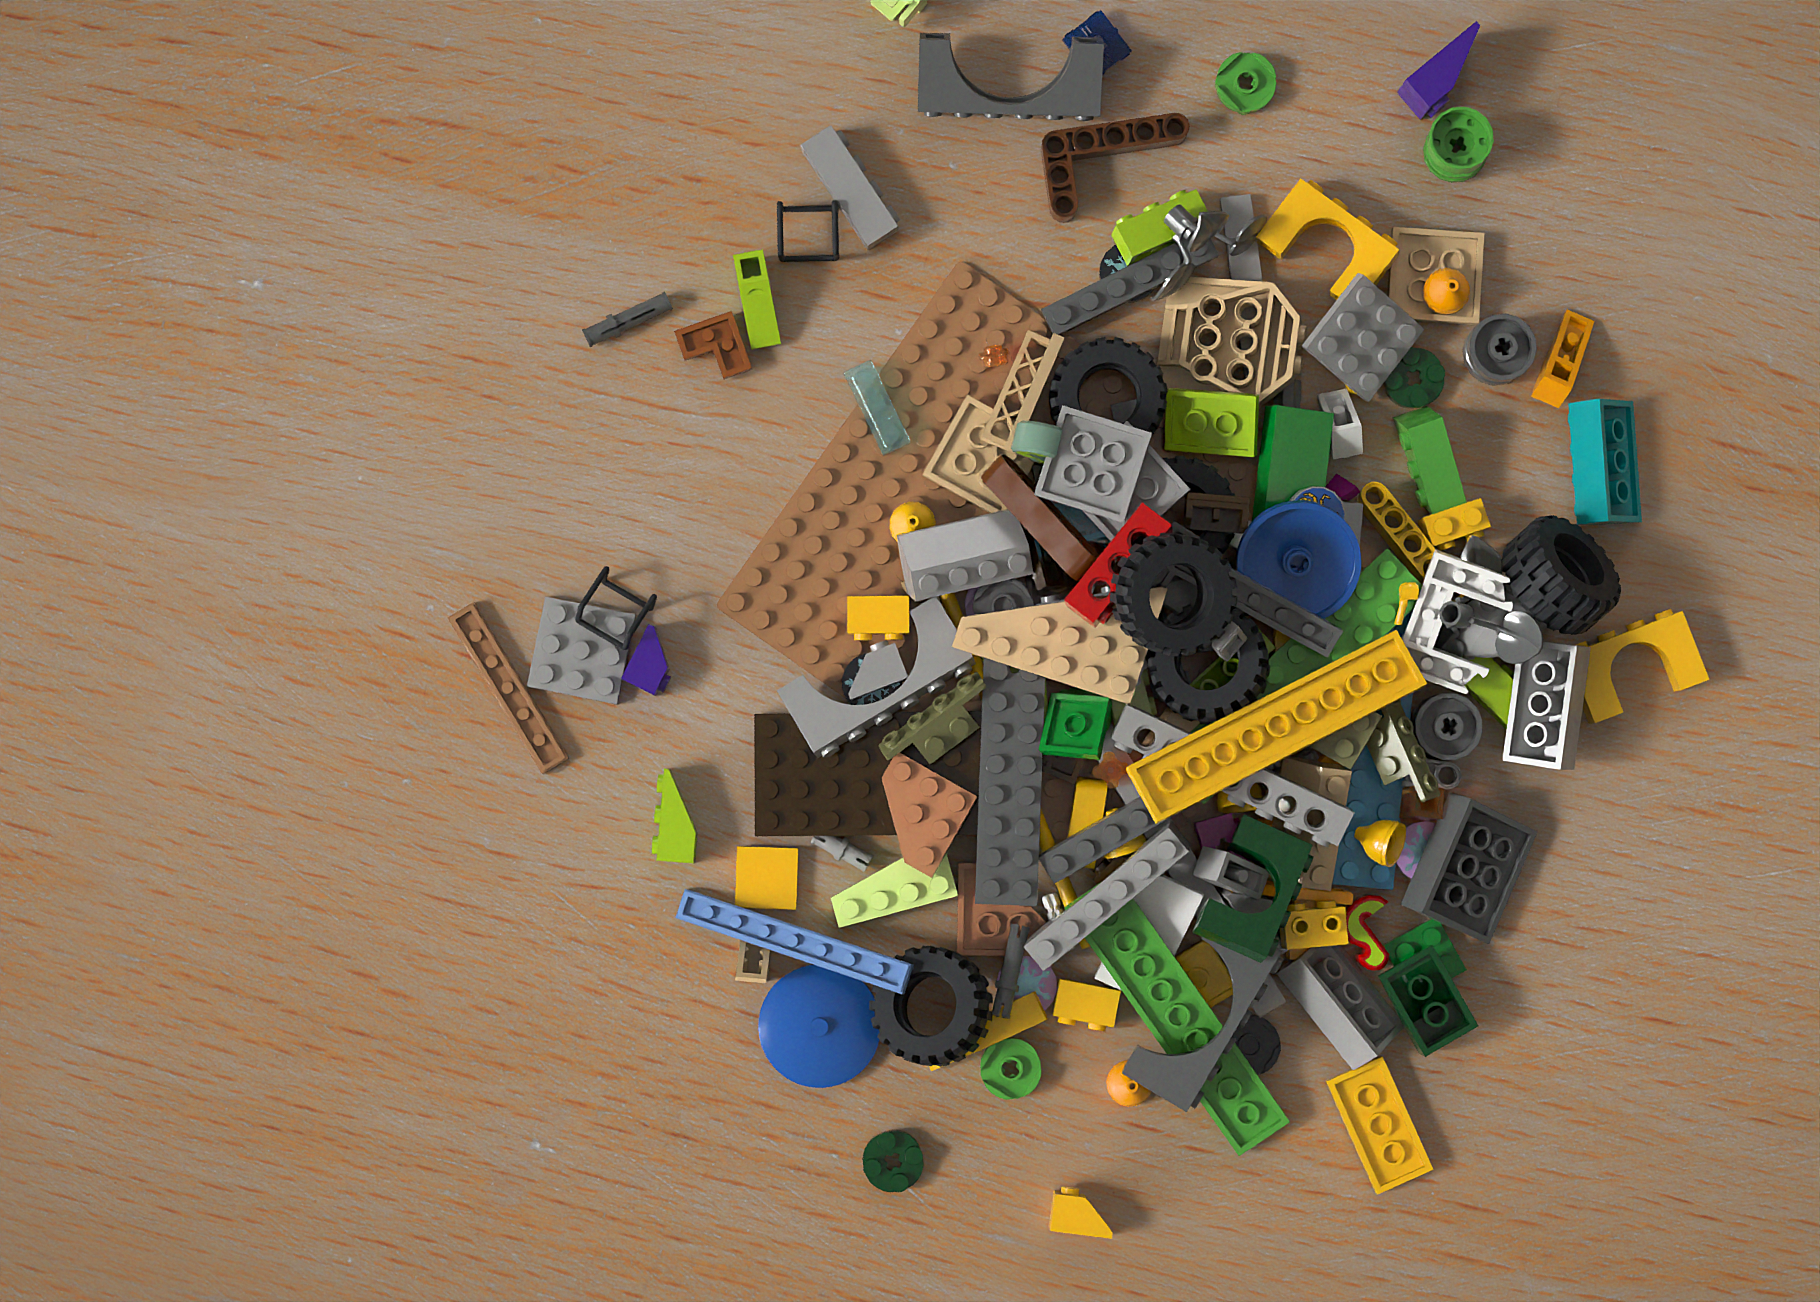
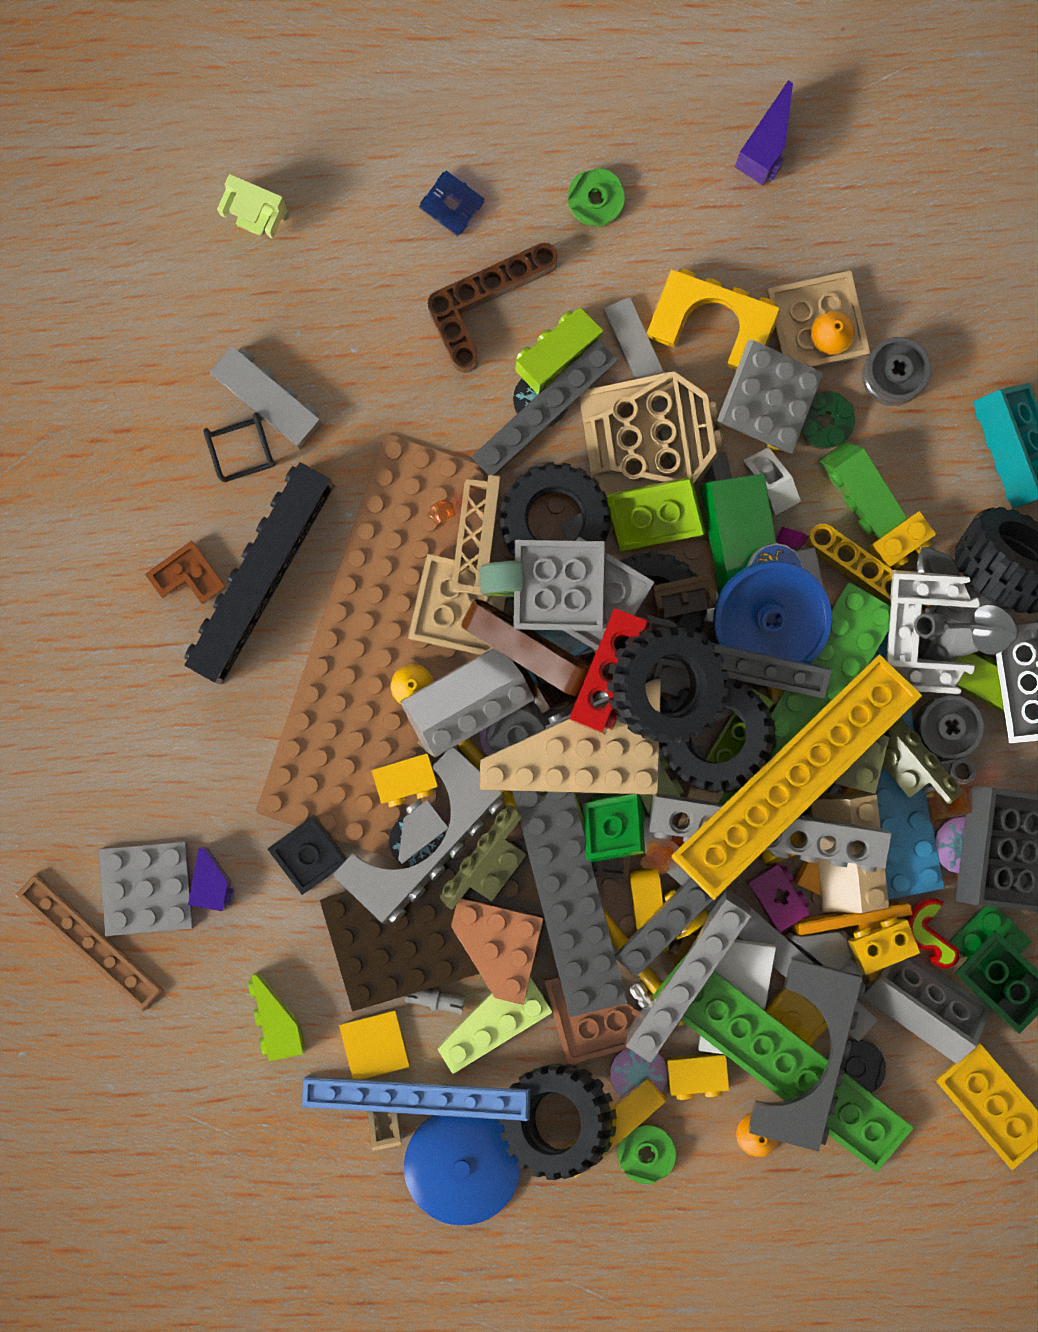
camera: 15 degrees left, 0 degrees up
(602, 577) = (145, 816): black piece -> none
(627, 319) = (96, 578): dark grey pin -> none
(756, 664) = (307, 854): none -> black plate
(757, 299) = (211, 522): lime slope -> none
(792, 364) = (259, 573): none -> black brick
(877, 407) = (349, 589): clear light blue plate -> none
(897, 1178) = (574, 1283): dark green plate -> none
(1010, 971) = (620, 1067): dark grey pin -> none
(1071, 93) = (328, 283): dark grey arch -> none
(1076, 1215) = (746, 1270): yellow slope -> none
(1199, 232) = (594, 345): dark grey plant -> none
(1229, 641) = (732, 712): light grey tile -> none
(1231, 872) = (794, 919): light grey slope -> none
(1285, 860) = (841, 895): dark green arch -> none
(1382, 841) = (922, 848): yellow helmet -> none
(1407, 592) = (878, 617): yellow hand -> none
(1469, 131) = (805, 181): bright green wheel -> none
(1563, 359) = (955, 363): light orange slope -> none

